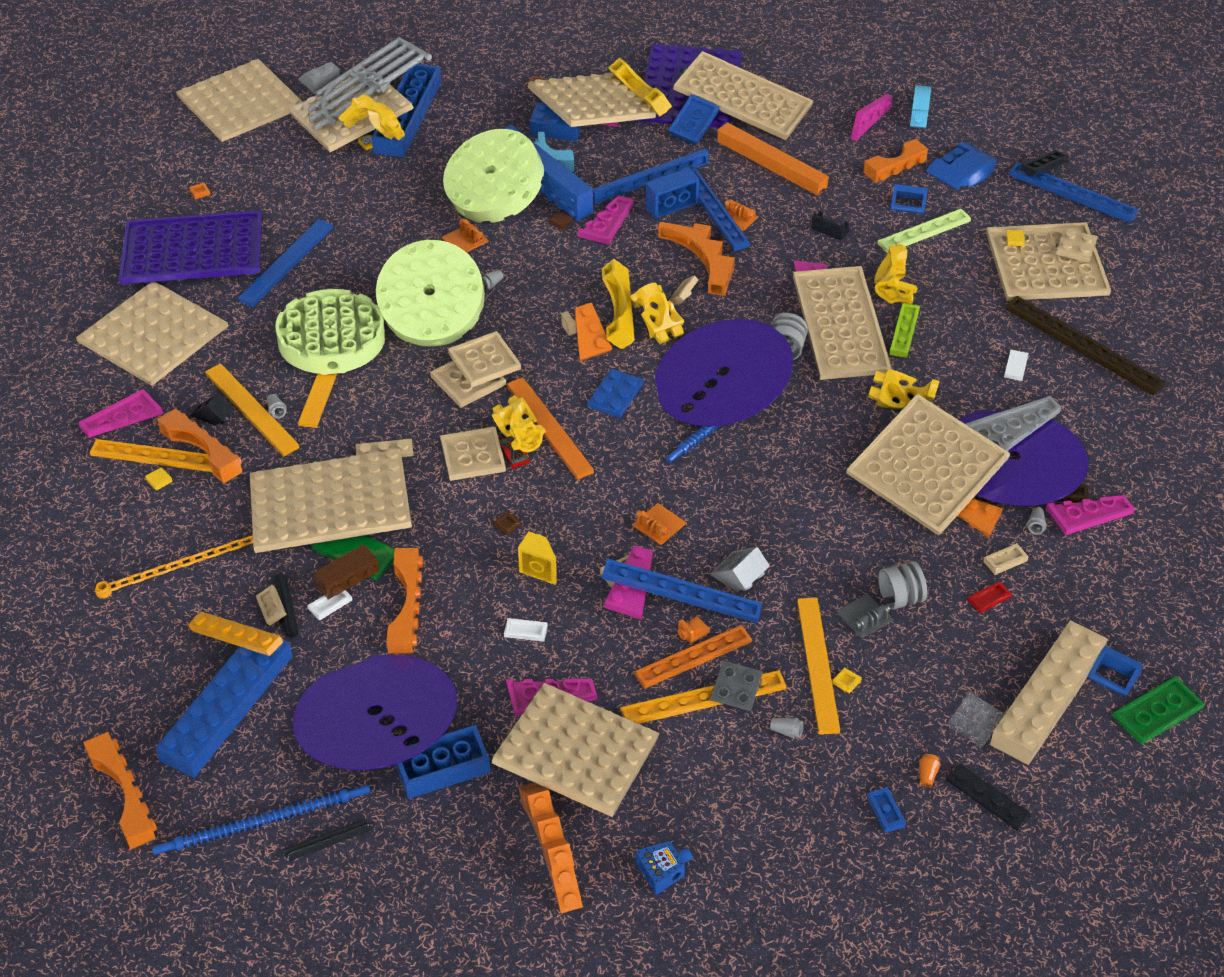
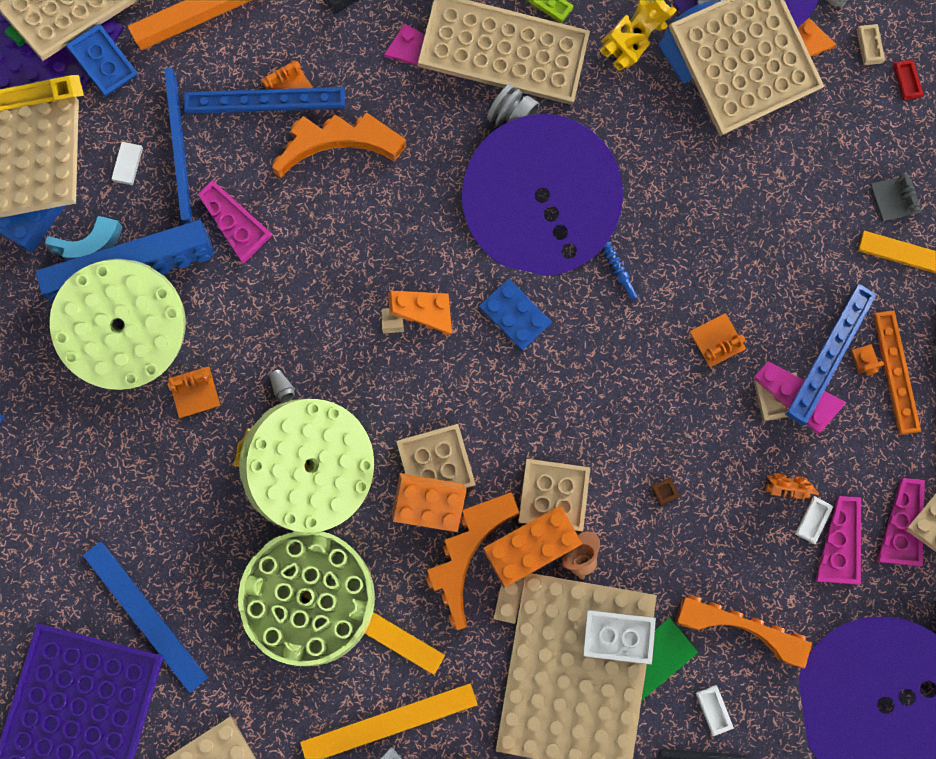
camera: 75 degrees left, 30 degrees up
(275, 403) = (398, 694): light grey cone -> none
(346, 571) = (693, 683): reddish brown brick -> none
(365, 502) = (619, 637): none -> white plate
(402, 407) = (451, 576): none -> orange arch
(421, 440) = (532, 546): none -> orange brick
(425, 481) = (583, 558): none -> nougat piece
(432, 373) = (428, 502): none -> orange brick
(484, 359) = (424, 437): tan plate -> none
(503, 655) = (842, 547): none -> dark pink wing
(515, 457) = (564, 450): tile -> none
(525, 434) = (563, 430): yellow hips -> none
(537, 558) = (739, 478): yellow slope -> none
(546, 599) = (798, 488): none -> orange hinge
(554, 432) = (541, 401): orange tile -> none
(561, 220) = (207, 272): reddish brown tile -> none
(617, 281) = (352, 250): yellow arch -> none
(624, 158) = (127, 163): none -> white tile
(663, 322) = (431, 219): yellow hips -> none
(672, 192) = (227, 134): blue brick -> none
(683, 290) = (387, 185): tan plate -> none
(741, 569) = (807, 287): light grey slope -> none
(903, 583) = (889, 146): light grey wheel -> none

